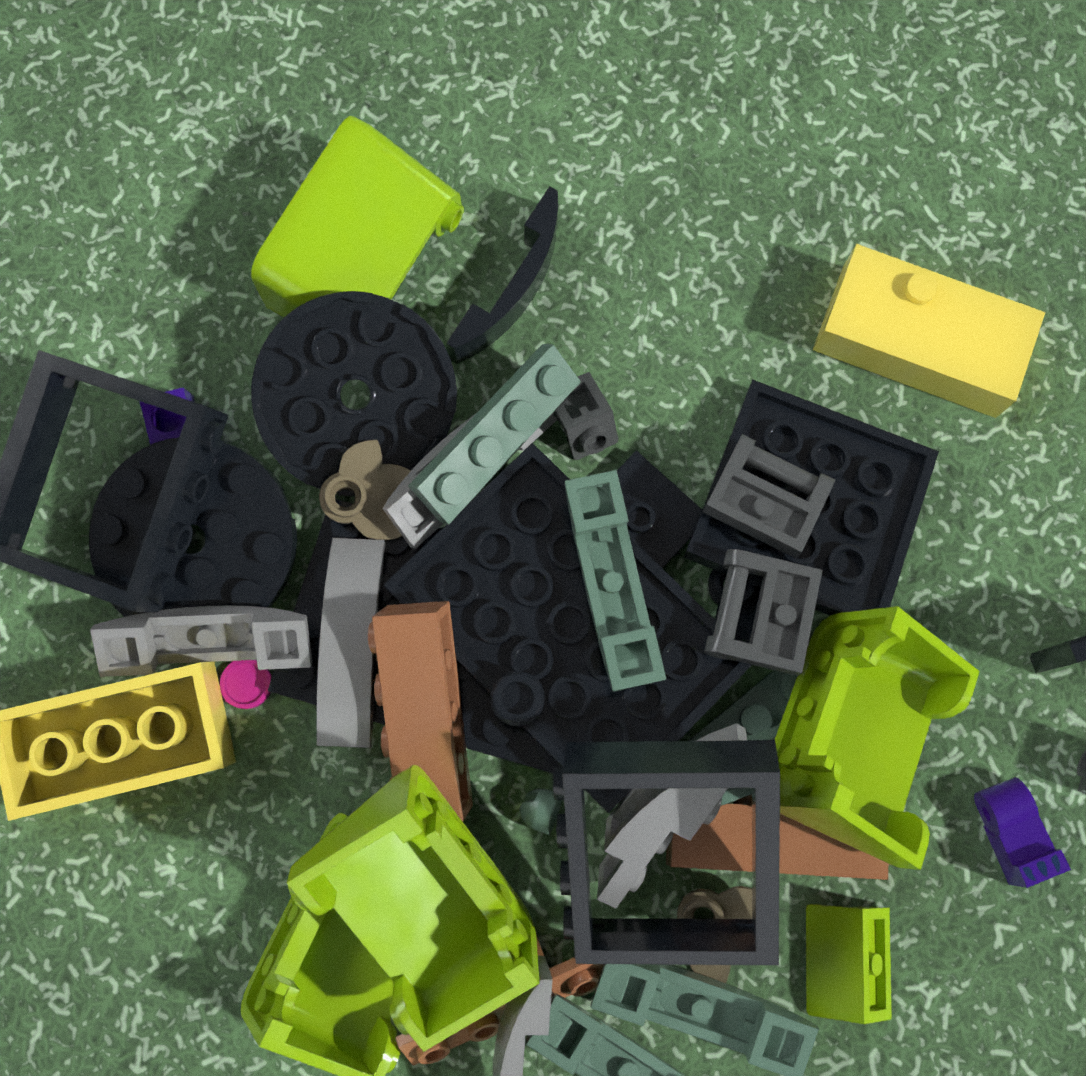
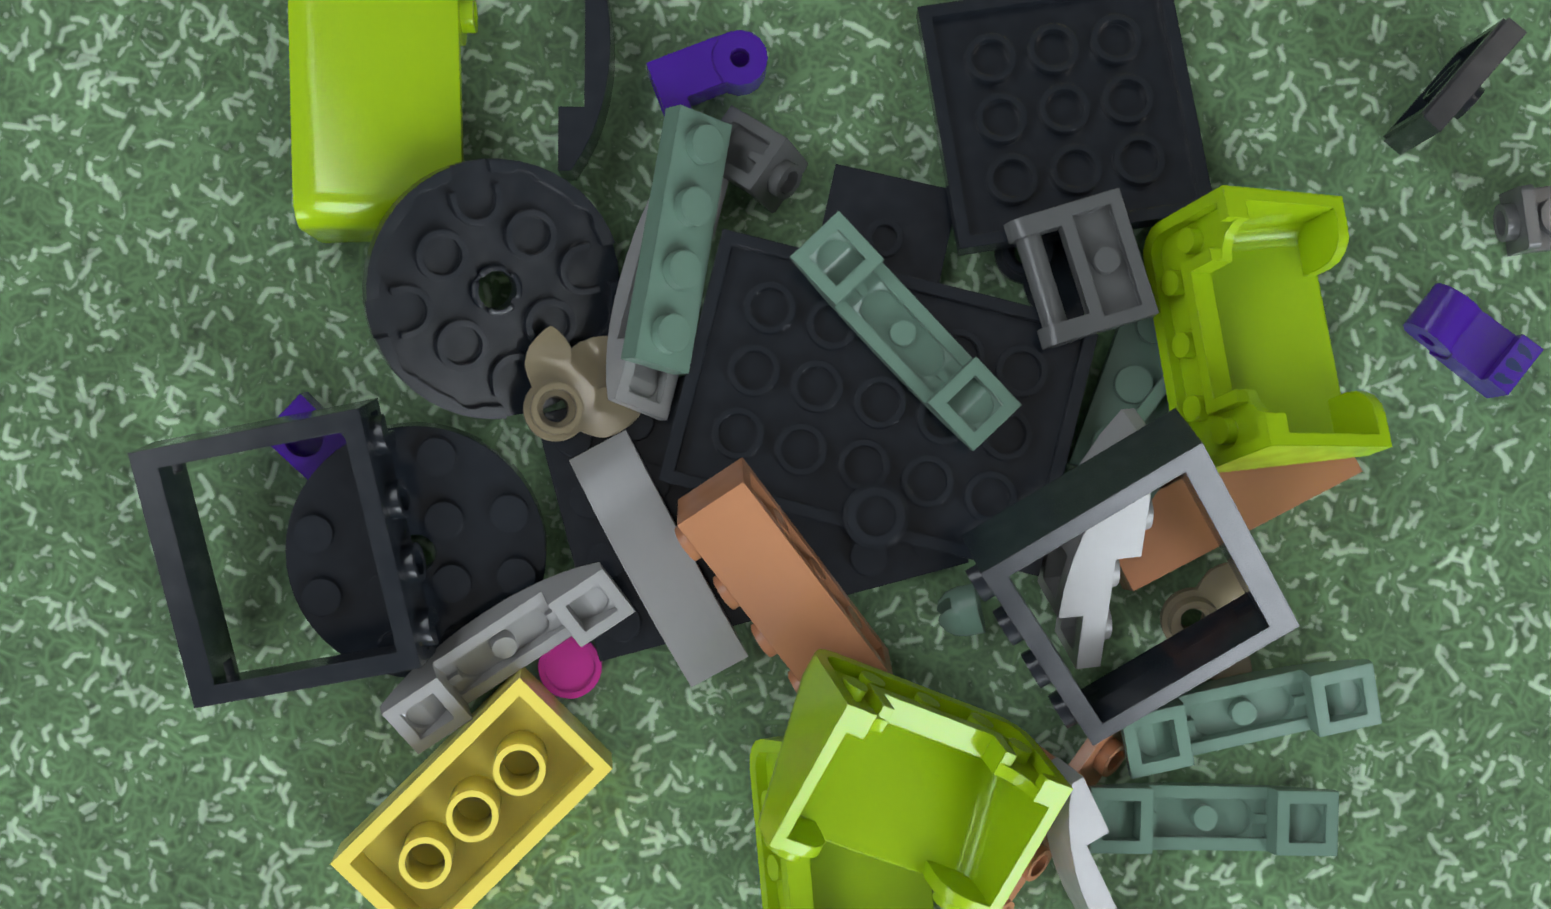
camera: 30 degrees left, 10 degrees up
(589, 340) = (717, 66): none -> dark purple leg
(764, 508) = (1020, 153): dark grey plate -> none
(848, 963) = (1365, 577): lime panel -> none

